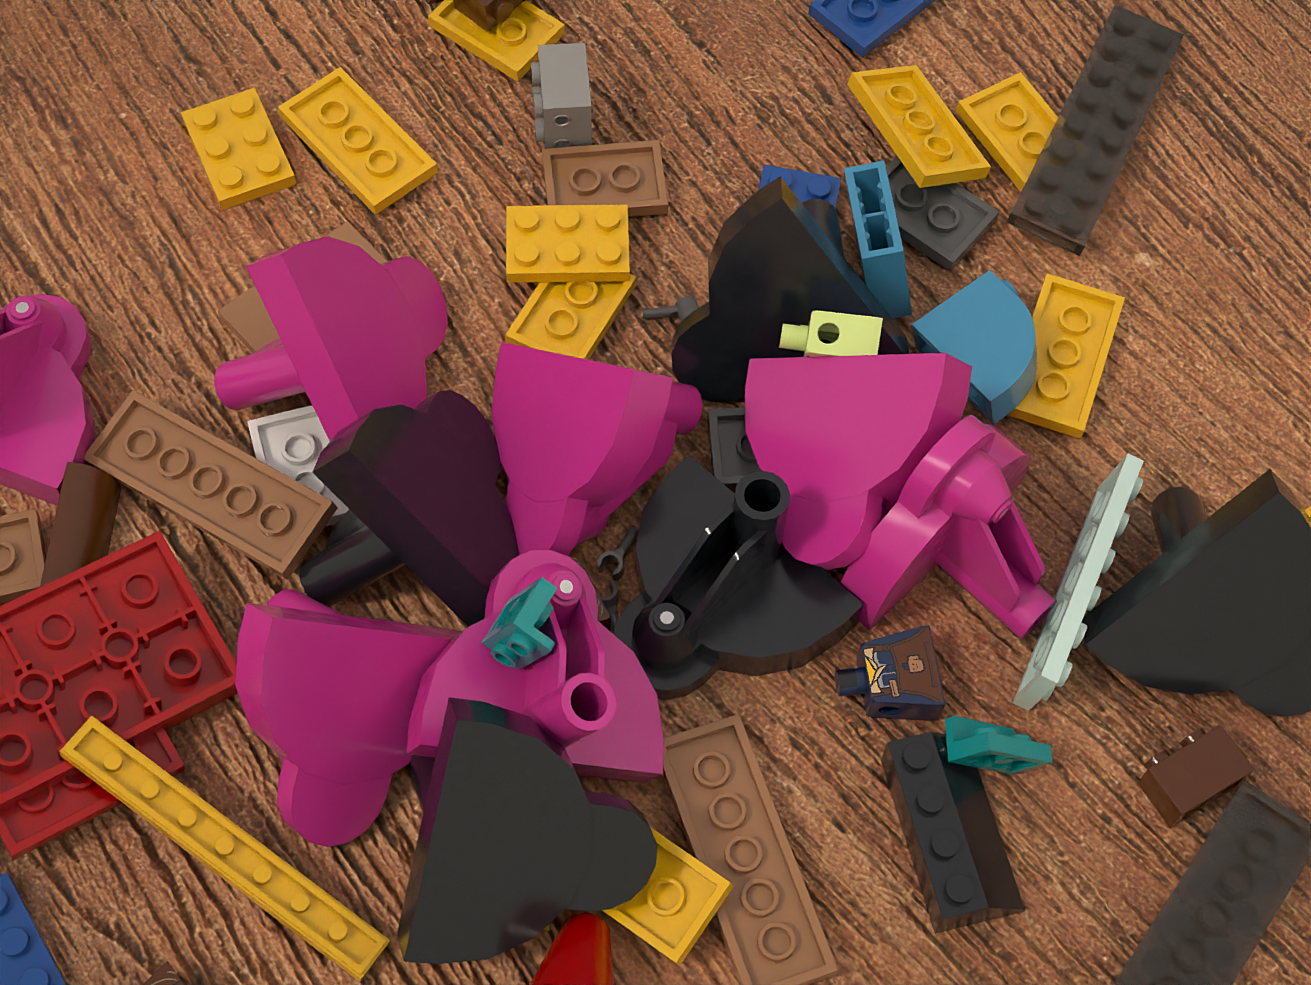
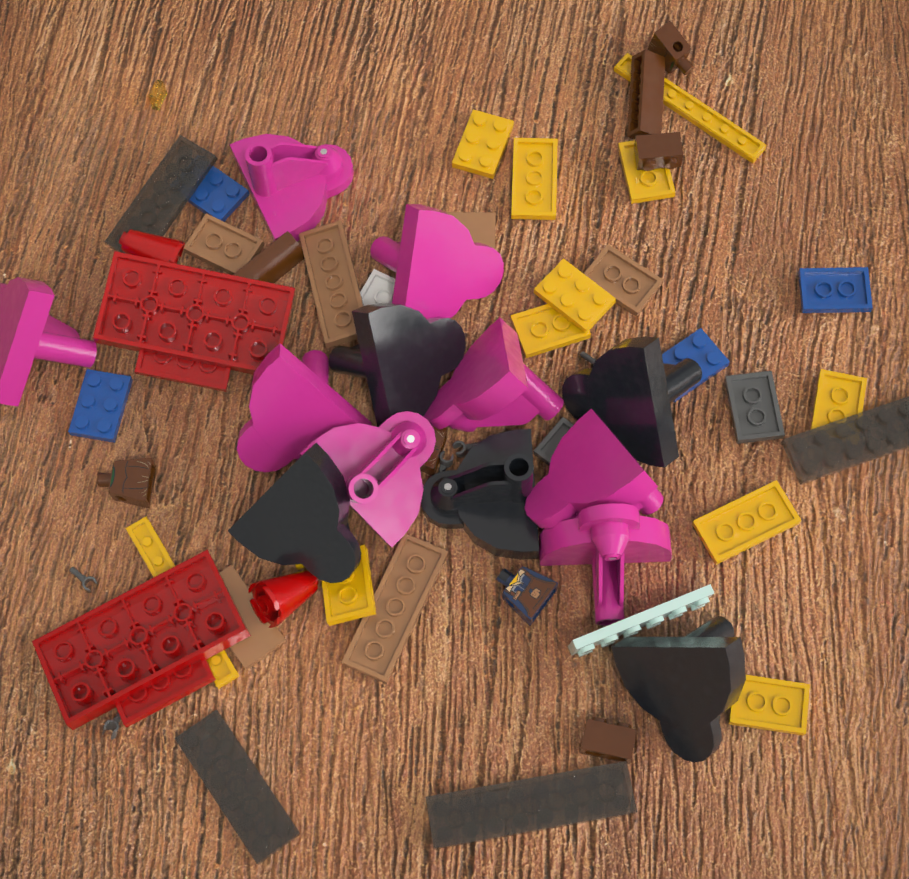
camera: 50 degrees right, 5 degrees up
(225, 848) = (209, 434): yellow tile -> none
(515, 632) = (378, 436): teal bracket -> none
(562, 96) = (636, 227): light grey piece -> none
(846, 332) = (632, 435): yellowish green torso -> none
(878, 237) = (707, 402): dark azure brick -> none
(918, 126) = (787, 365): yellow plate -> none
(949, 834) = (486, 671): black slope -> none
(990, 332) = (710, 487): dark azure brick -> none
(993, 747) = (533, 652): teal bracket -> none

